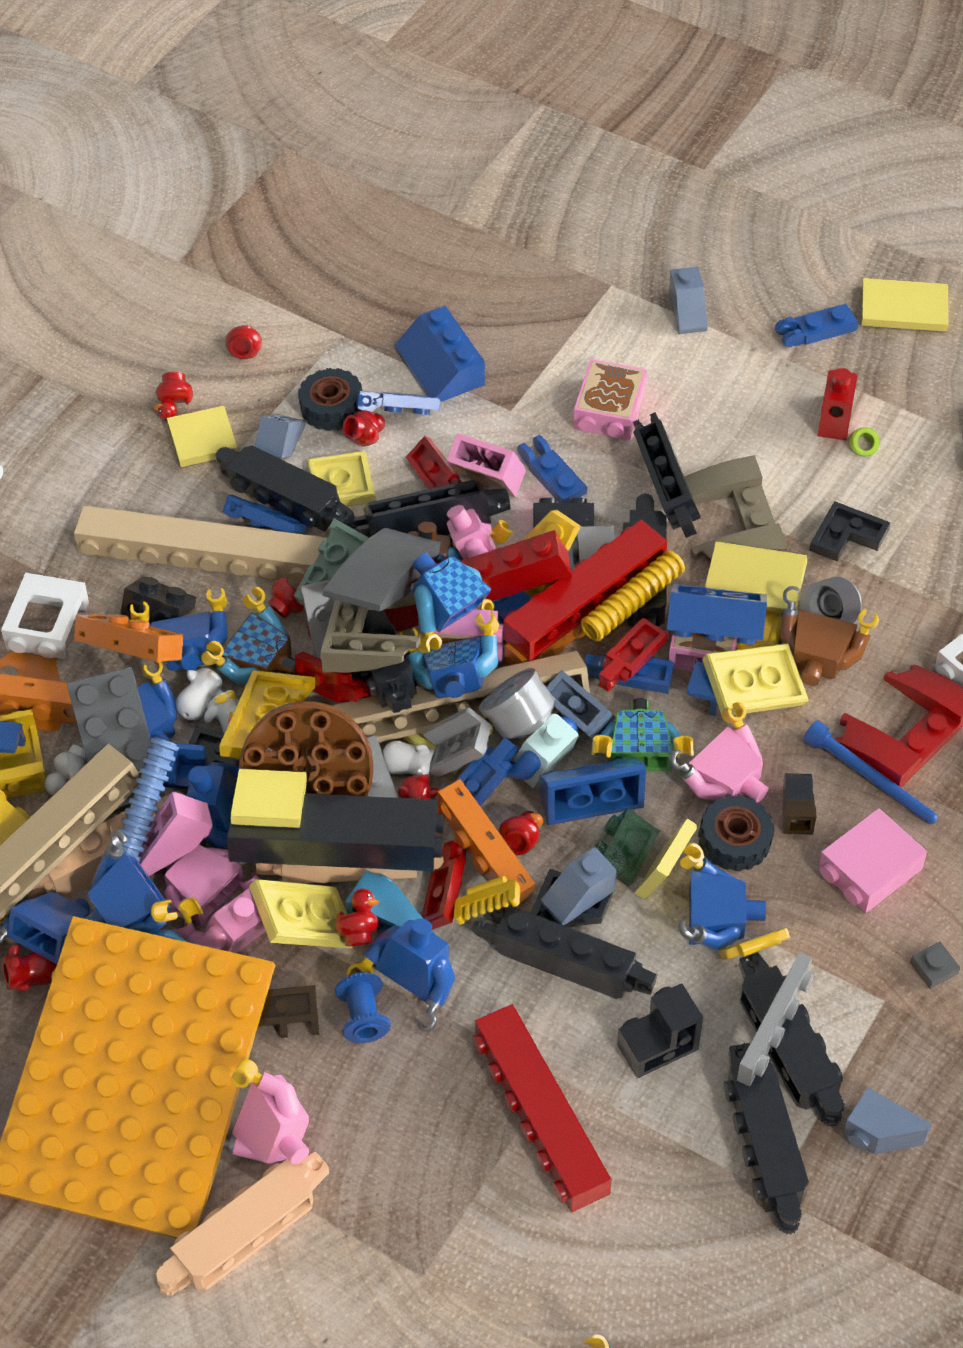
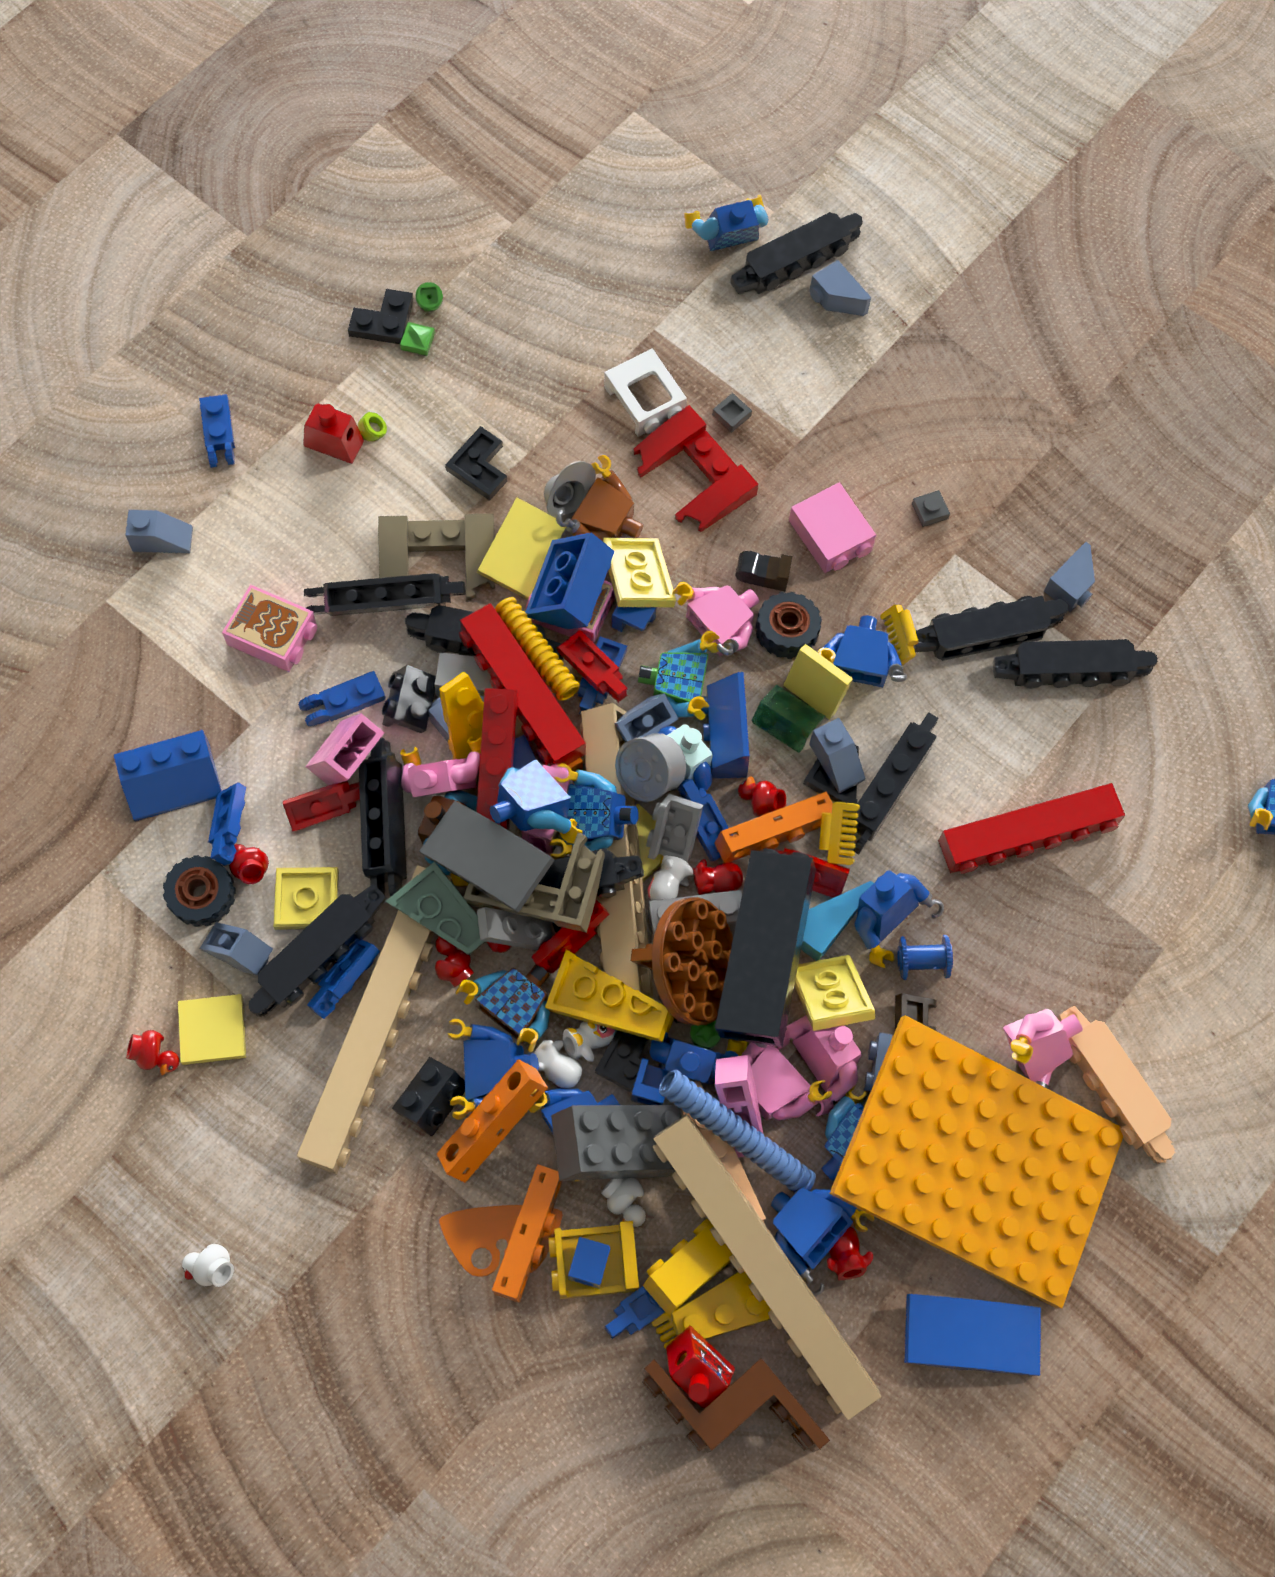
camera: 85 degrees left, 15 degrees up
(47, 591) = (402, 1197): white window -> none
(126, 893) = (812, 1143): blue torso -> none
(243, 342) = (93, 971): red animal -> none
(268, 798) = (736, 995): light yellow tile -> none
(359, 925) = (847, 944): red animal -> none
(663, 1035) = (978, 720): black brick -> none
(771, 1030) = (991, 627): light grey plate -> none
(819, 736) = (698, 538): blue piece -> none
(904, 305) = (211, 351): light yellow tile -> none

